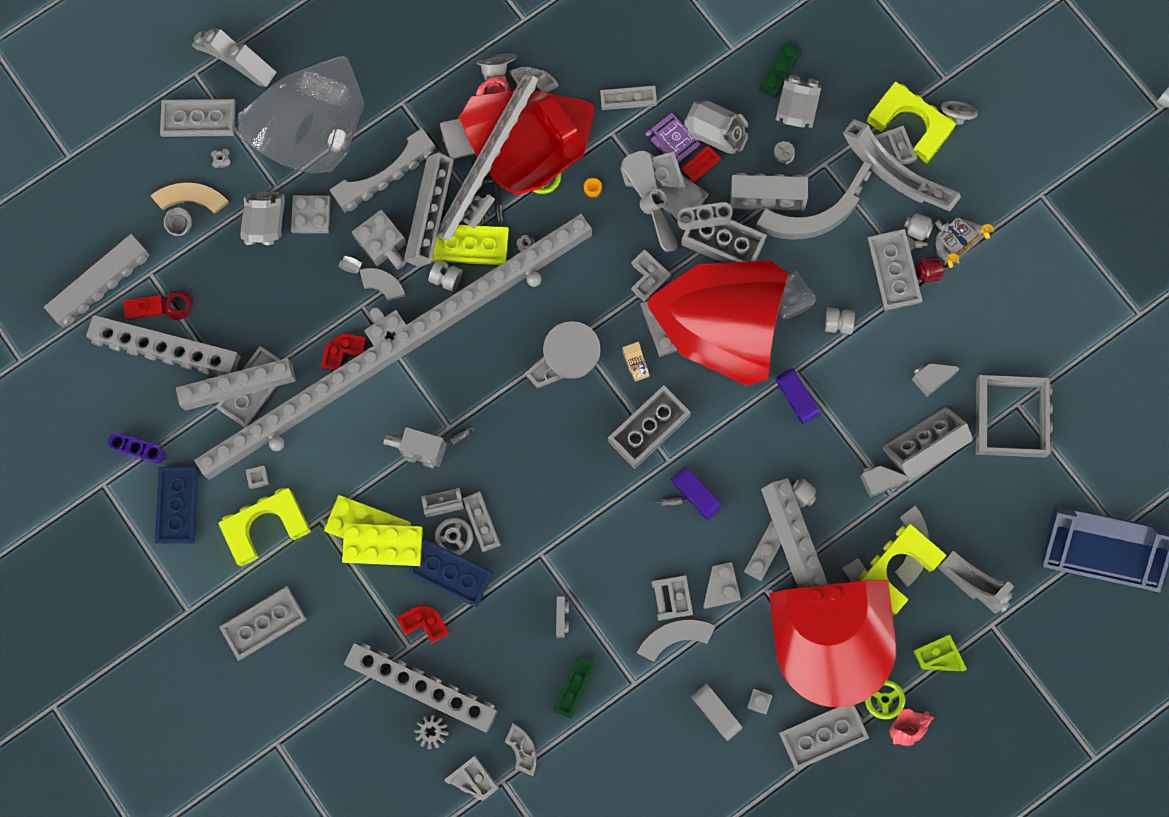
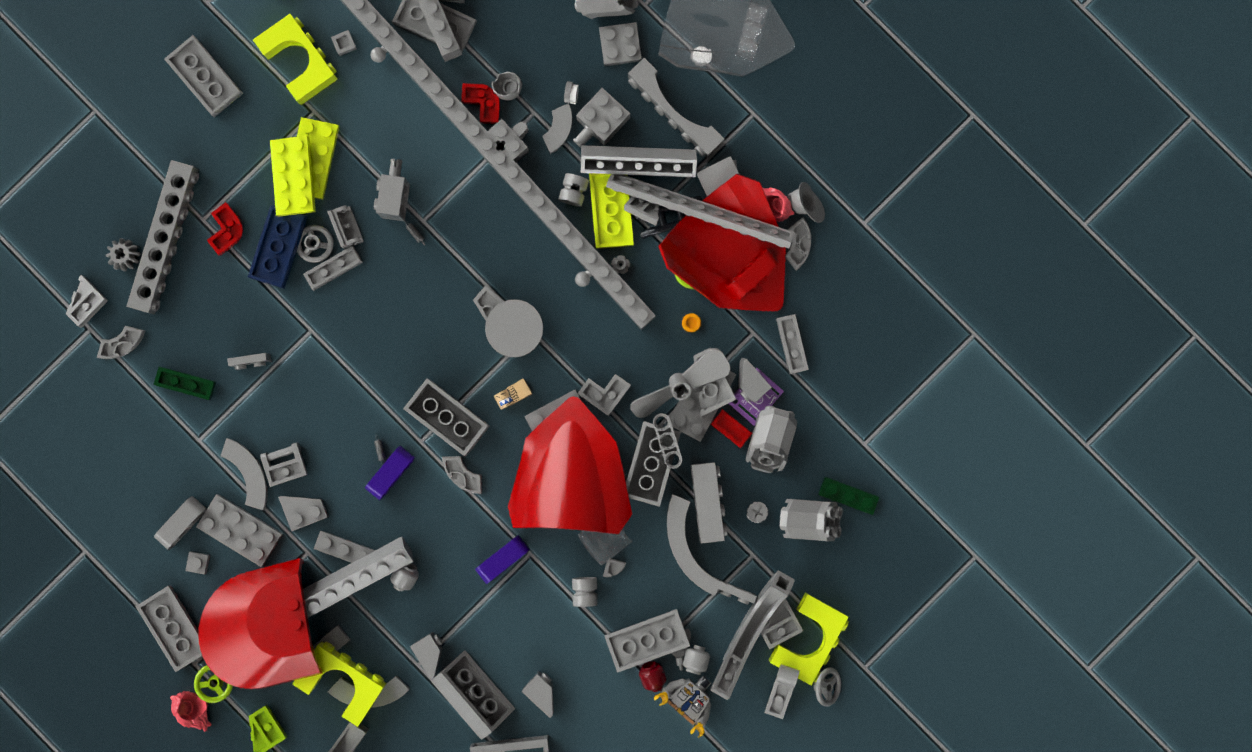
camera: 75 degrees right, 10 degrees up
(331, 323) = (507, 86): none -> light grey hair
(658, 137) = (751, 382): none -> light grey slope
(709, 425) = (461, 475): none -> light grey tile
(732, 654) = (239, 530): none -> light grey plate
(820, 293) = (613, 567): none -> light grey tile
(957, 151) = (782, 691): none -> light grey plate

